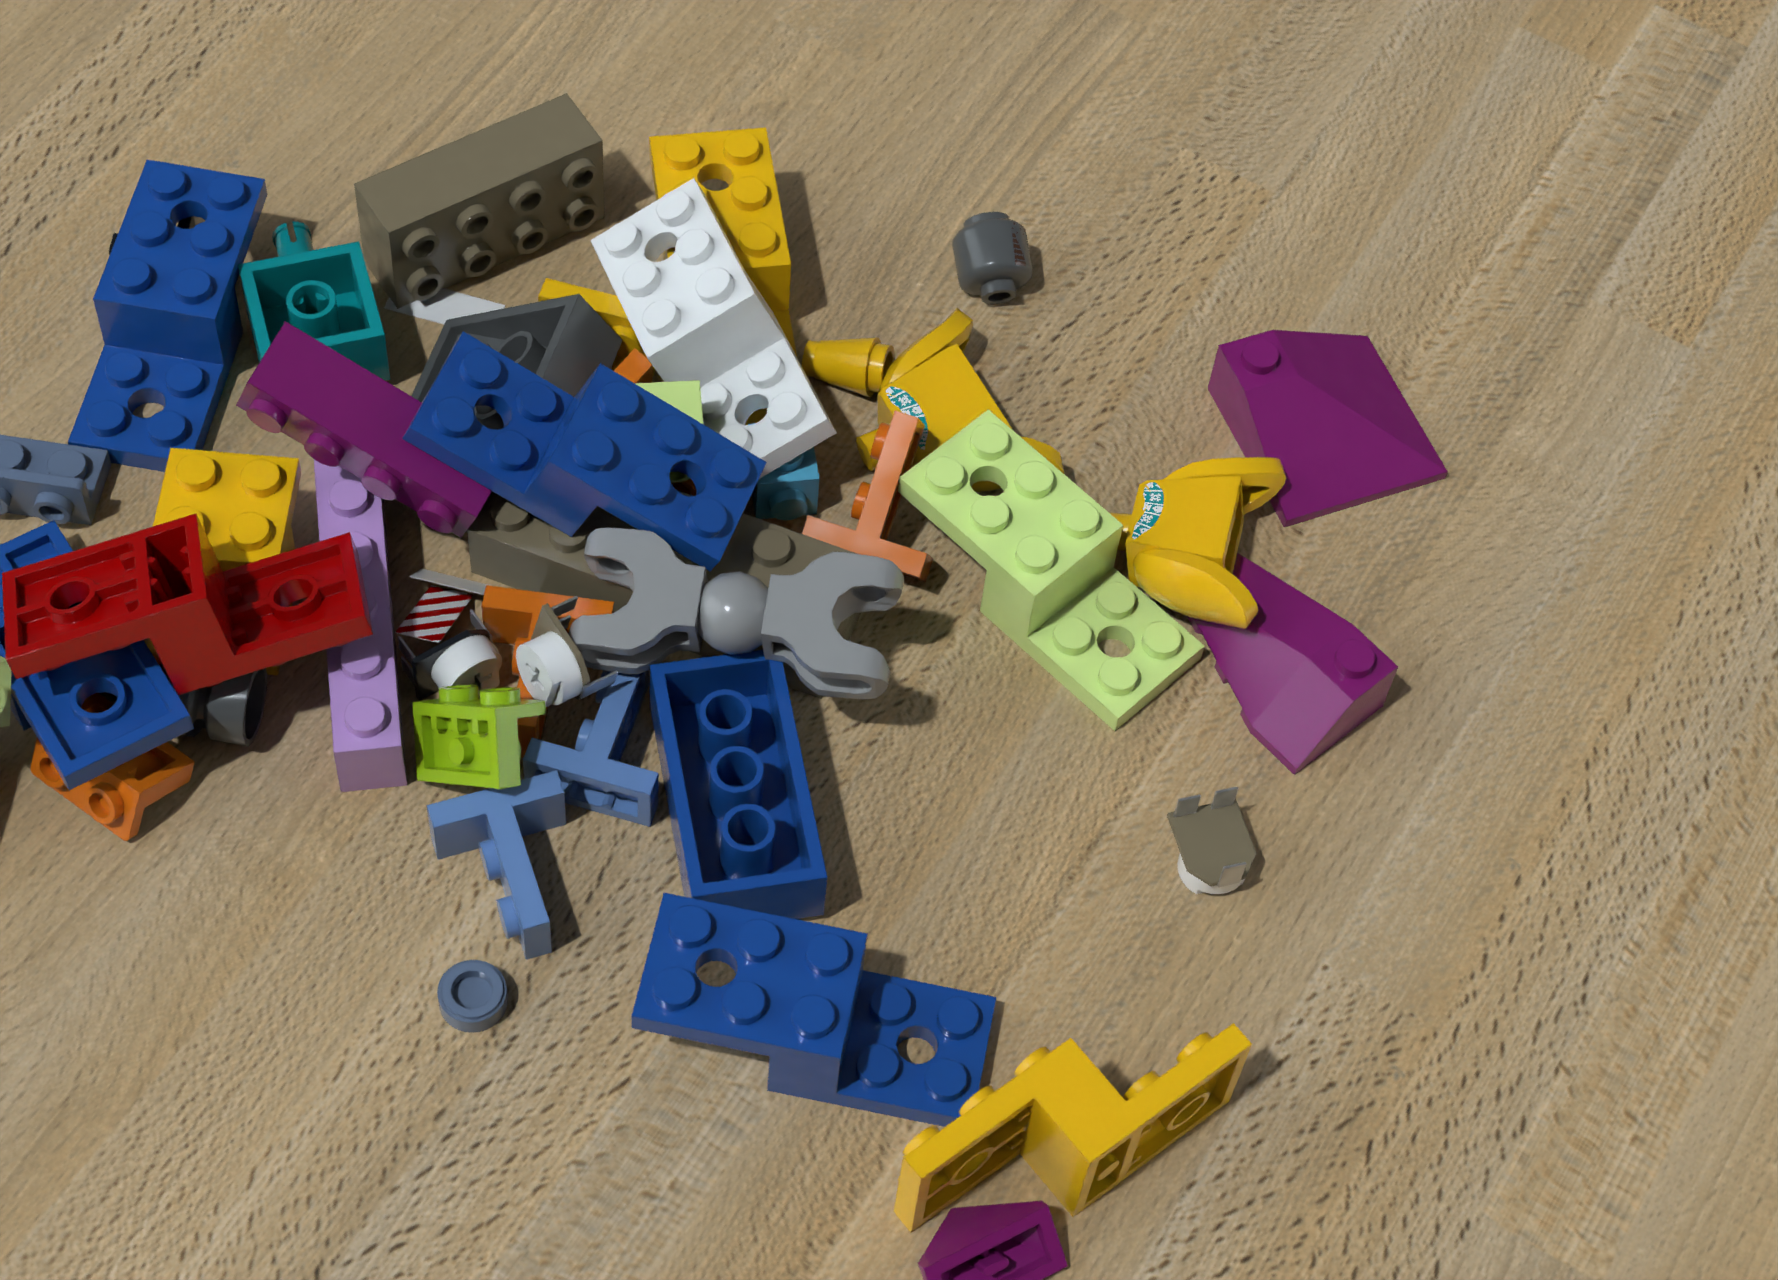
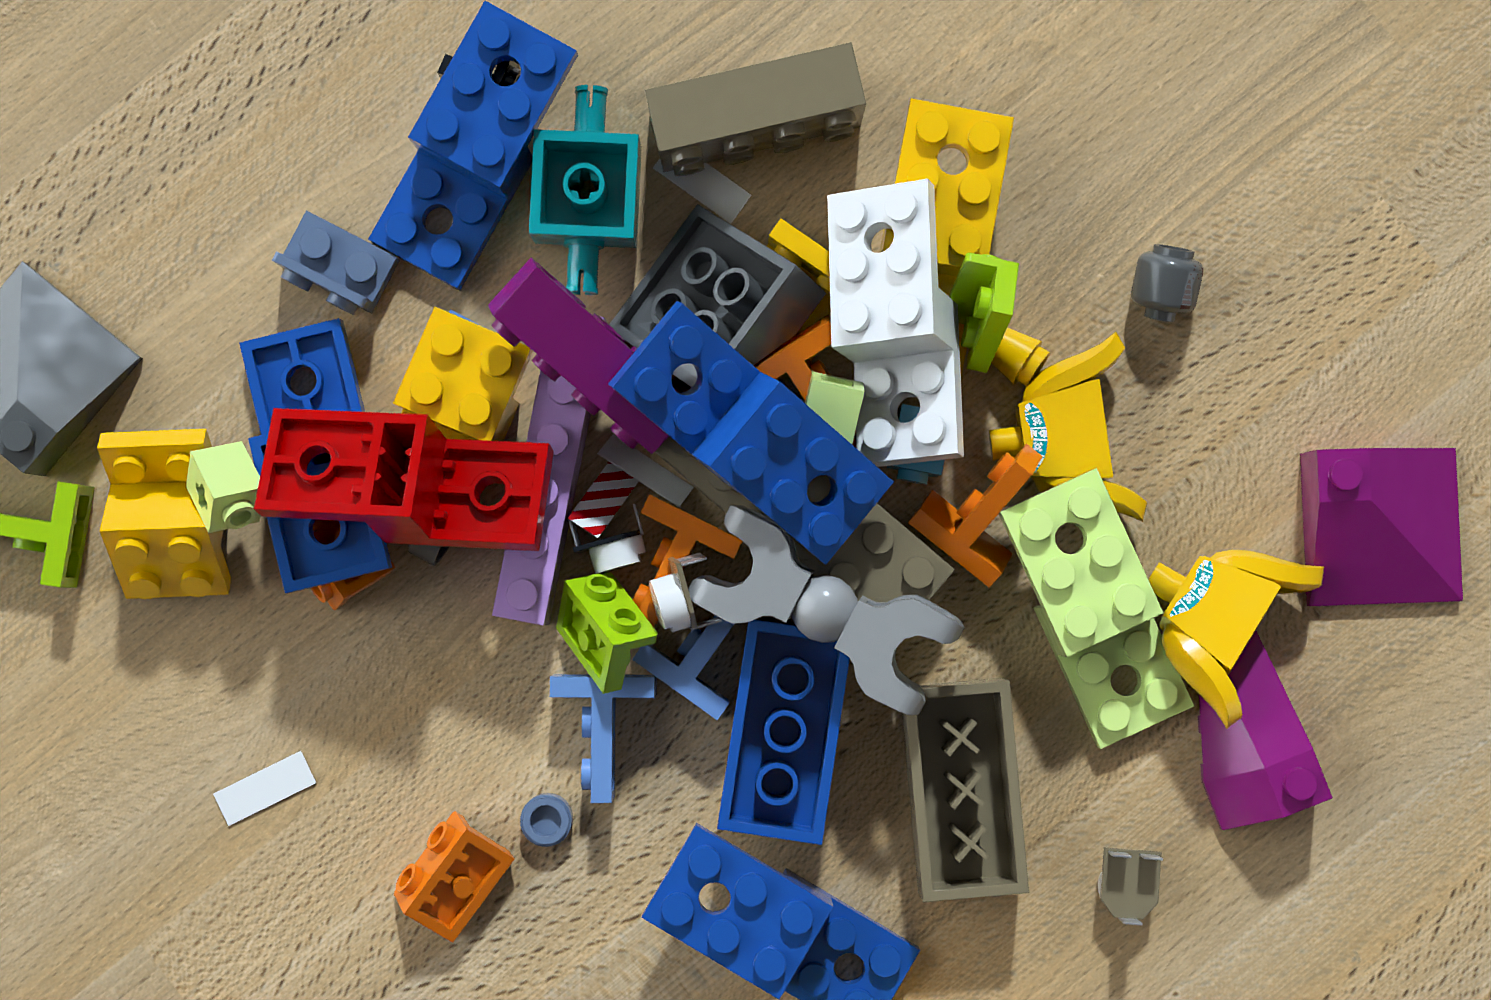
camera: 25 degrees right, 30 degrees up
(86, 1073) = (264, 788): none -> white sticker
(370, 1088) = (451, 877): none -> orange bracket
(799, 289) = (985, 305): none -> lime bracket
(976, 792) = (965, 792): none -> dark tan brick

